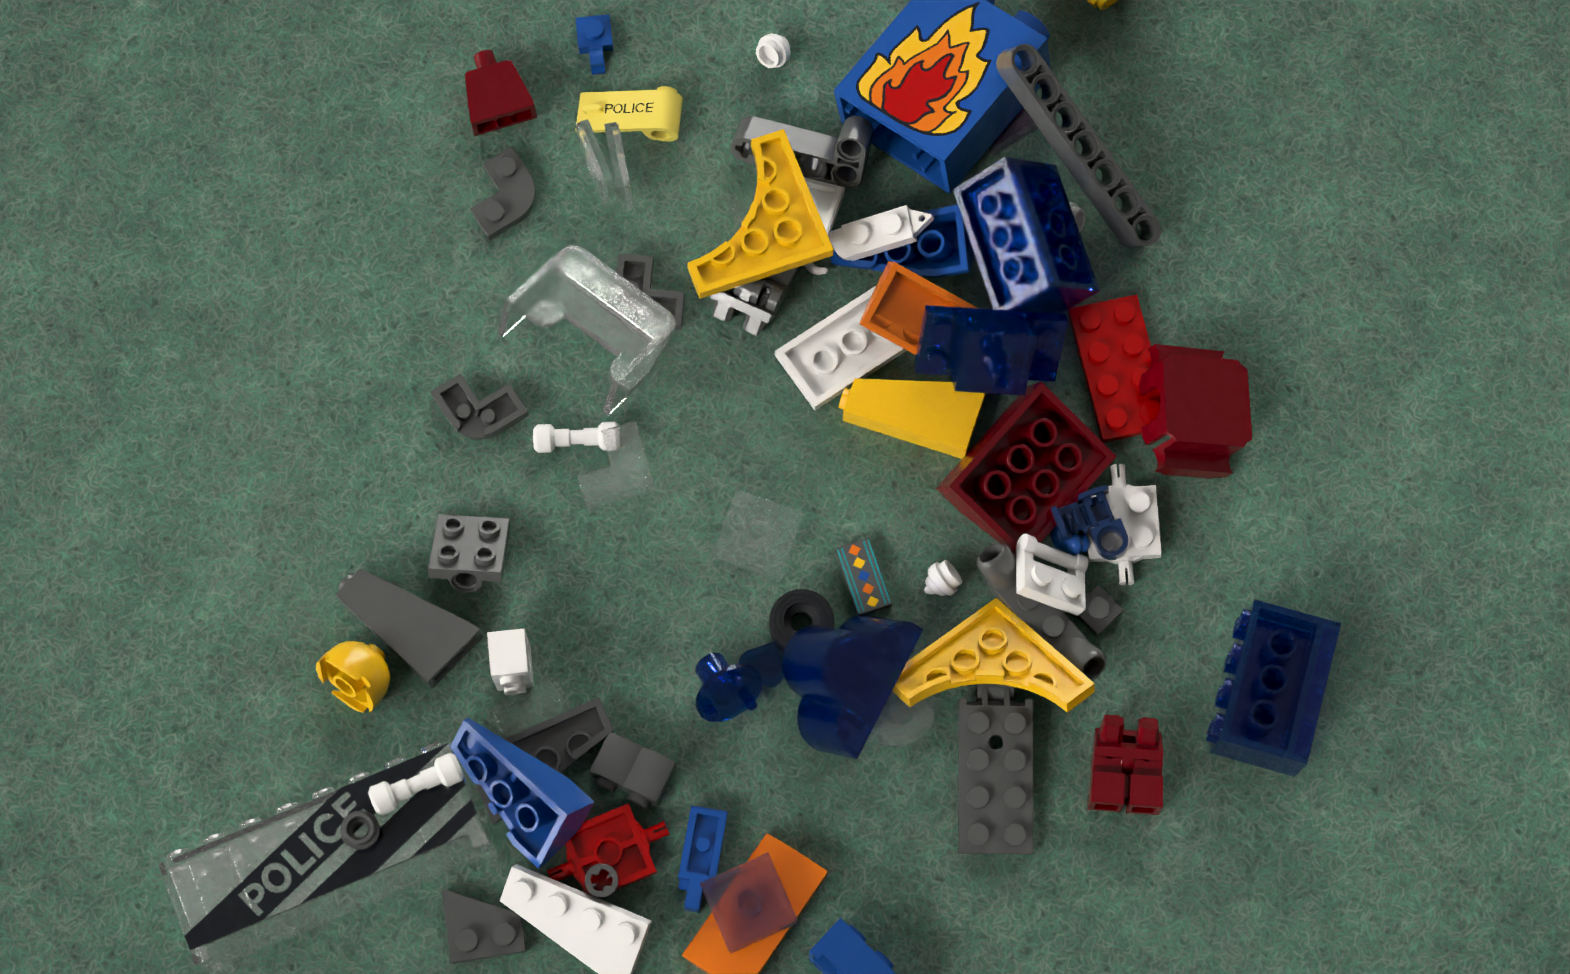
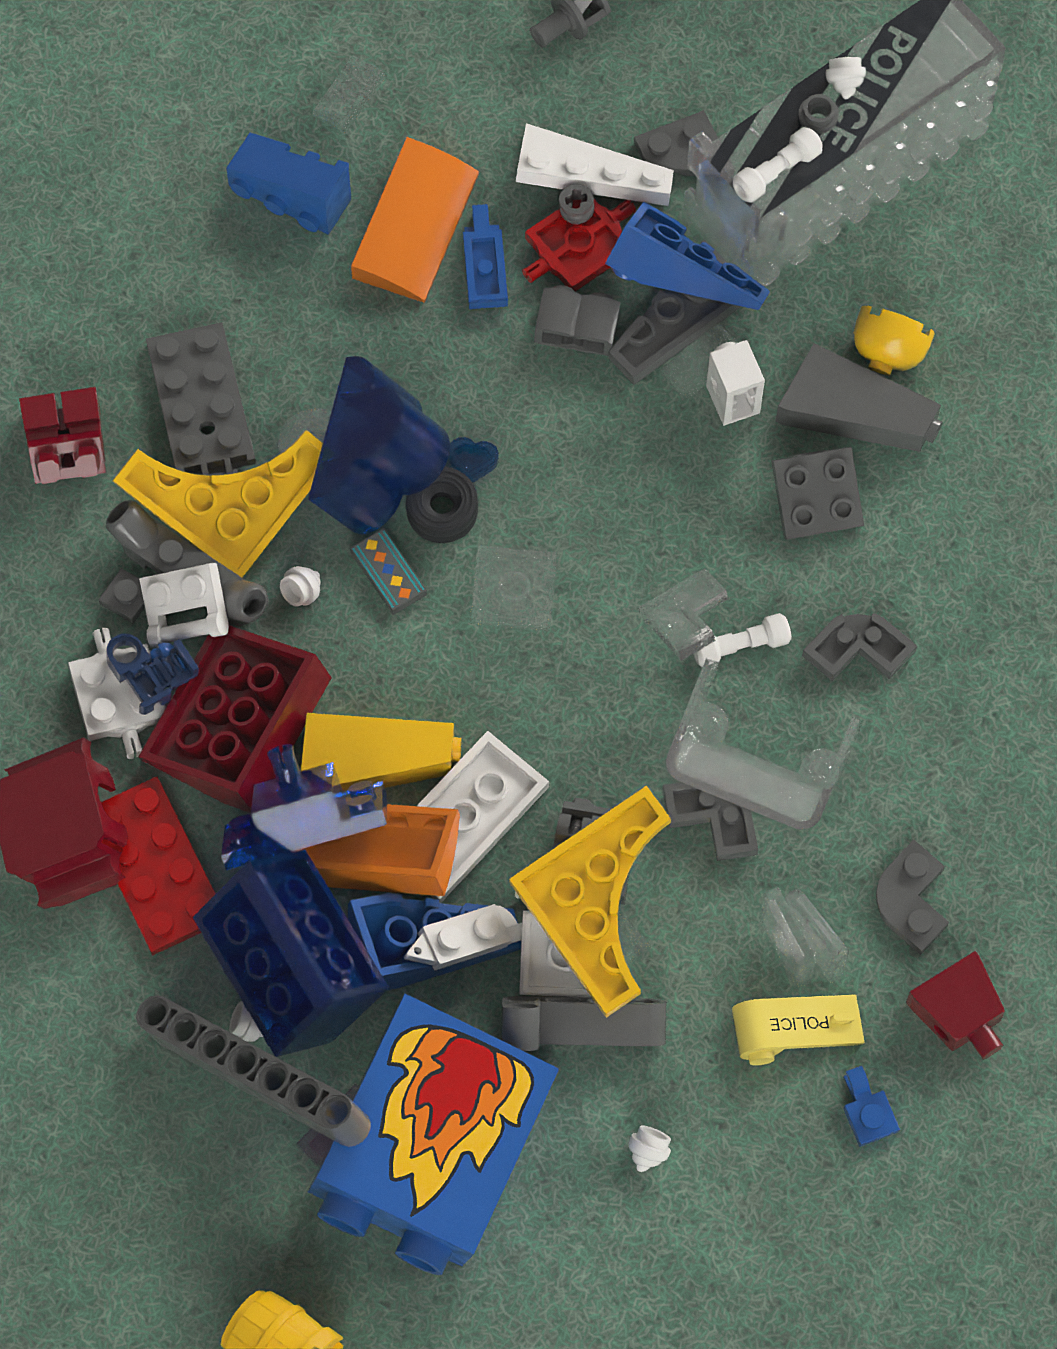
camera: 165 degrees right, 5 degrees down
(320, 864) = (845, 75): none -> white plate
(726, 688) = (506, 416): clear blue piece -> none
(749, 903) = (422, 214): plate -> none

